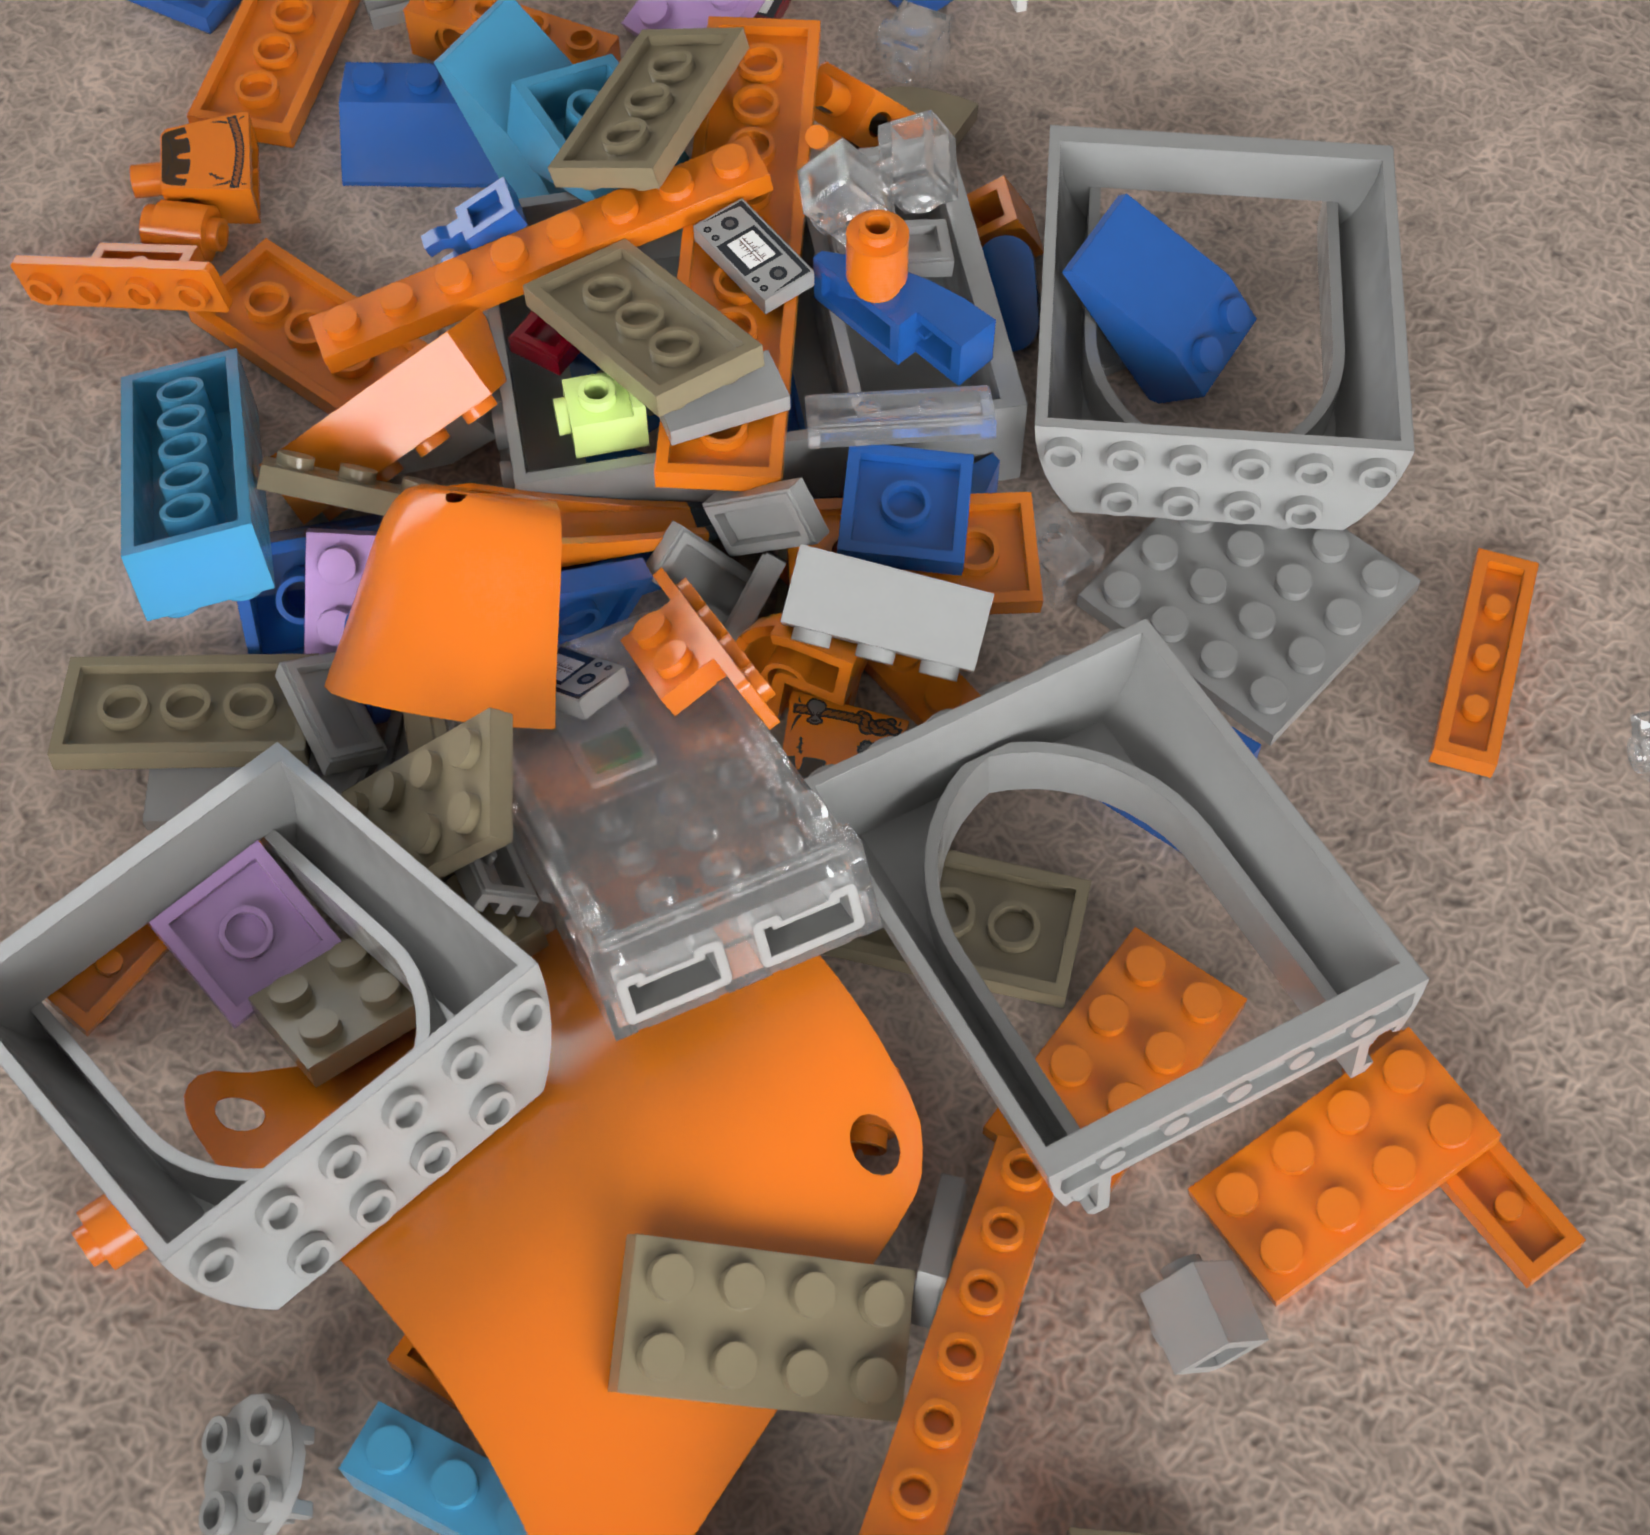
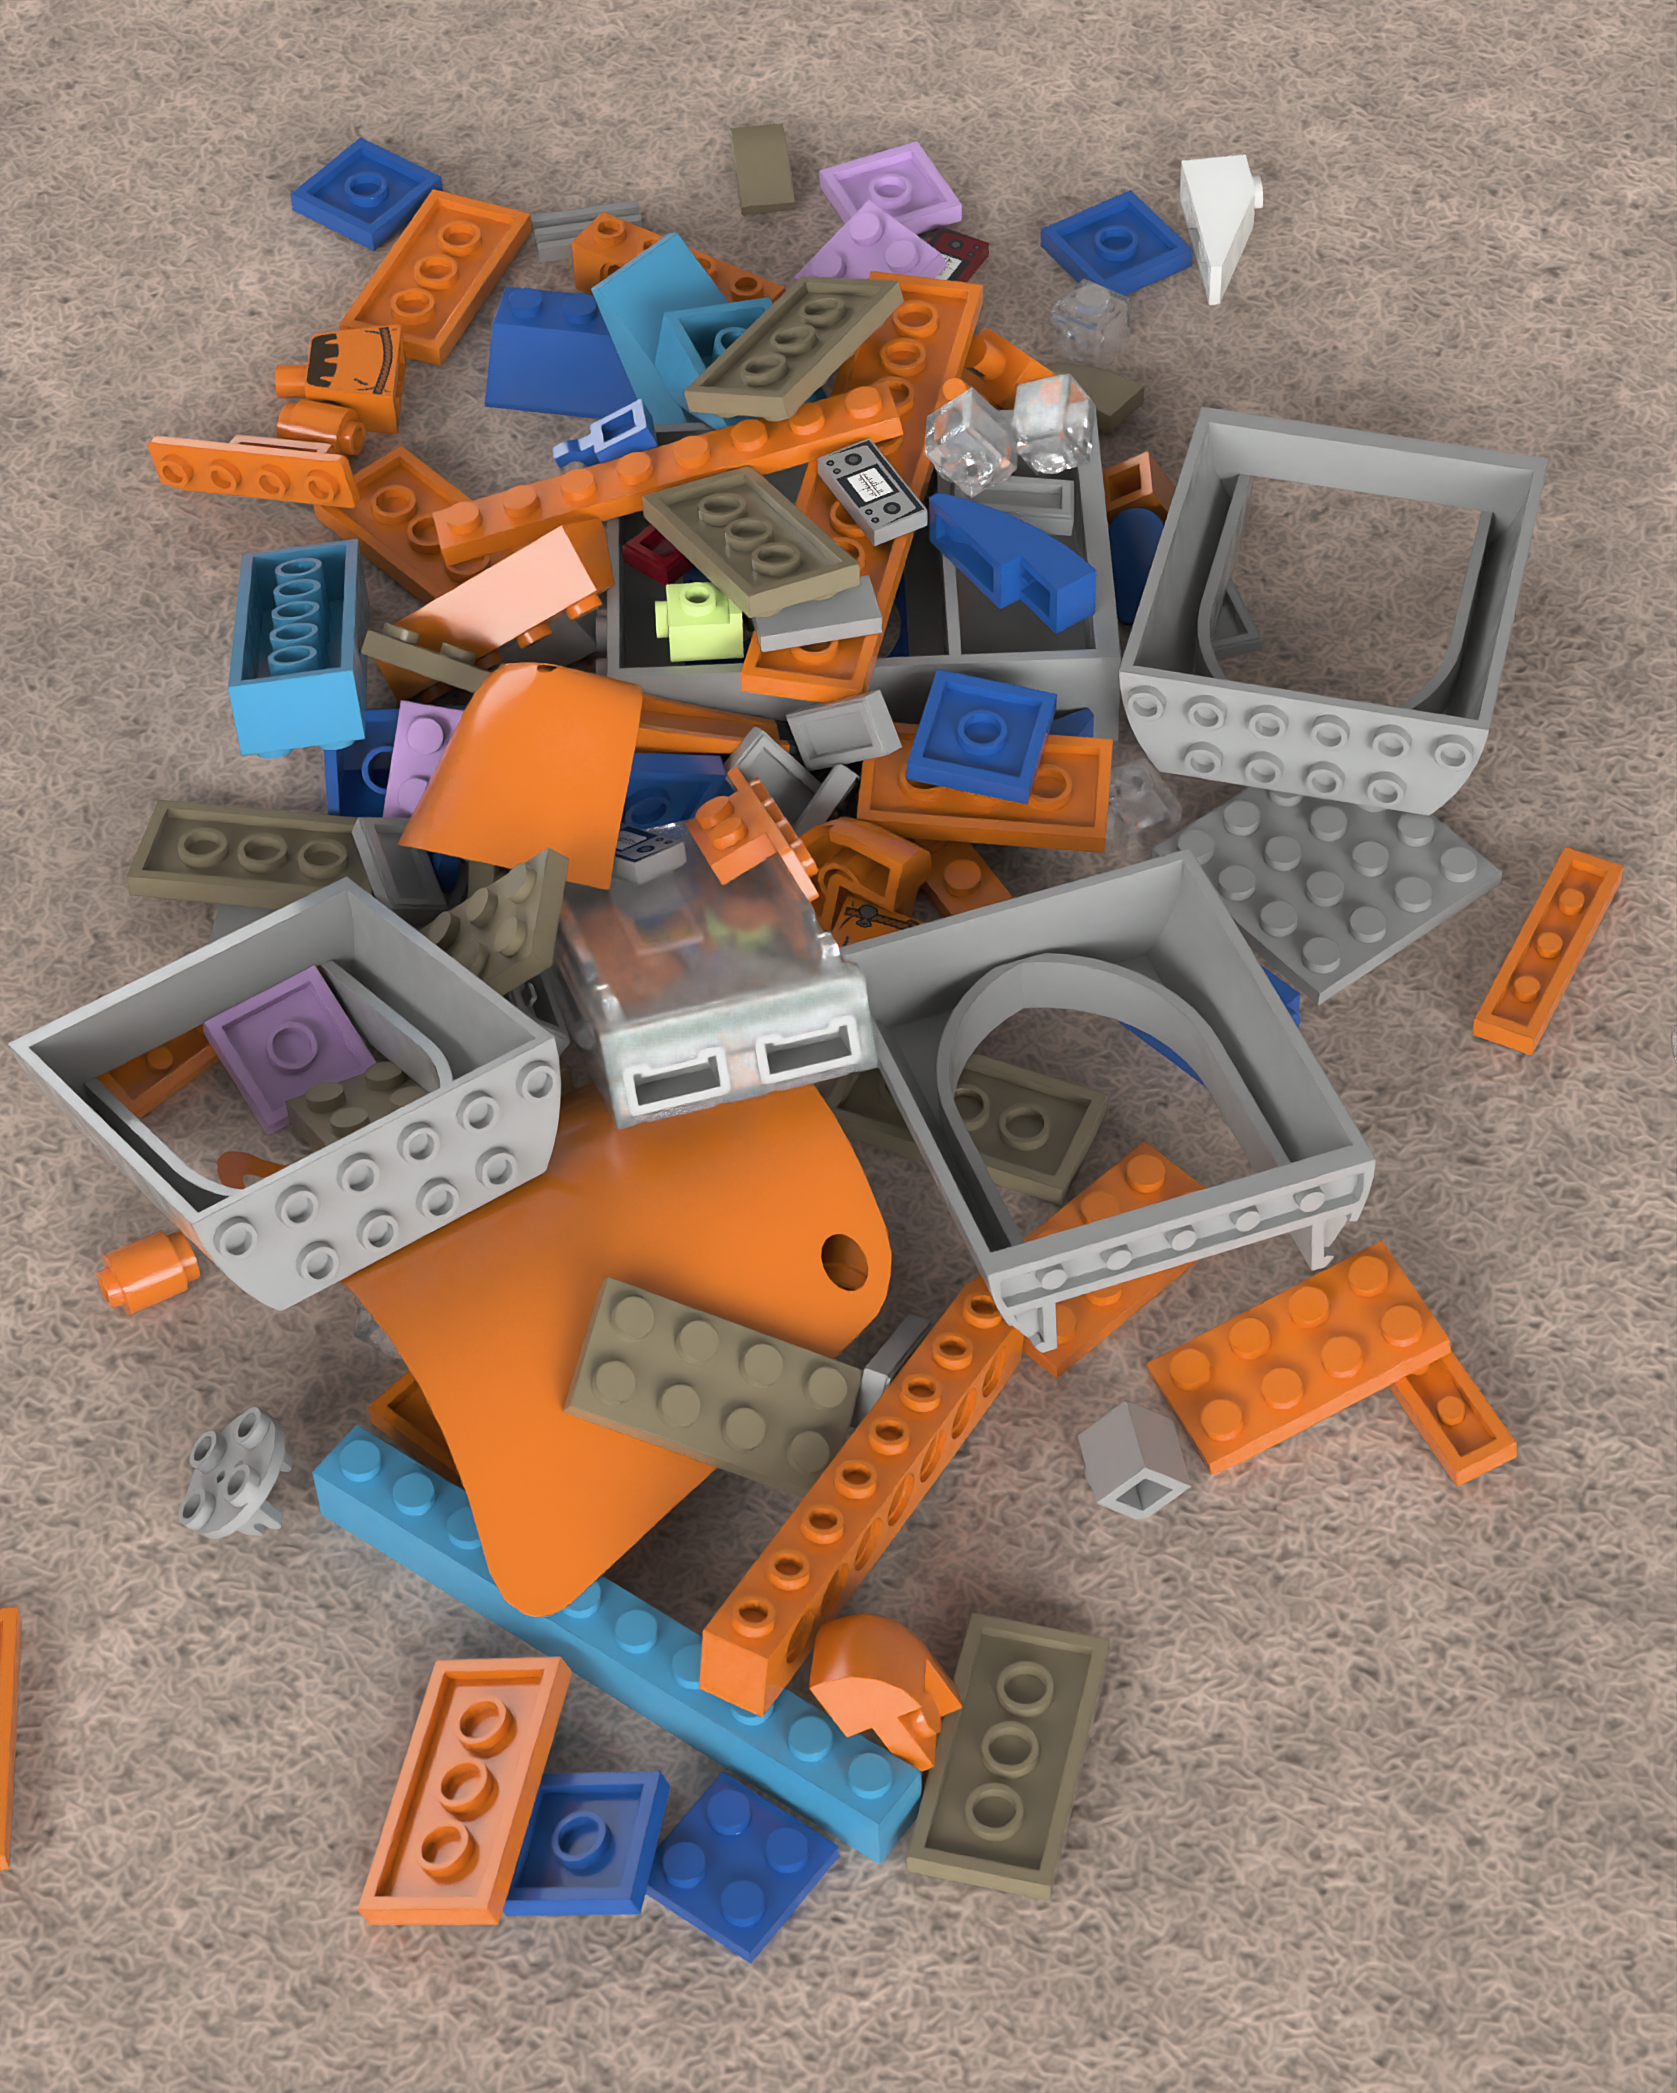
camera: 10 degrees right, 10 degrees down
(877, 255) = (986, 497): orange brick -> none
(886, 612) = (941, 816): slope -> none
(900, 416) = (989, 651): clear tile -> none
(1159, 302) = (1282, 584): blue slope -> none

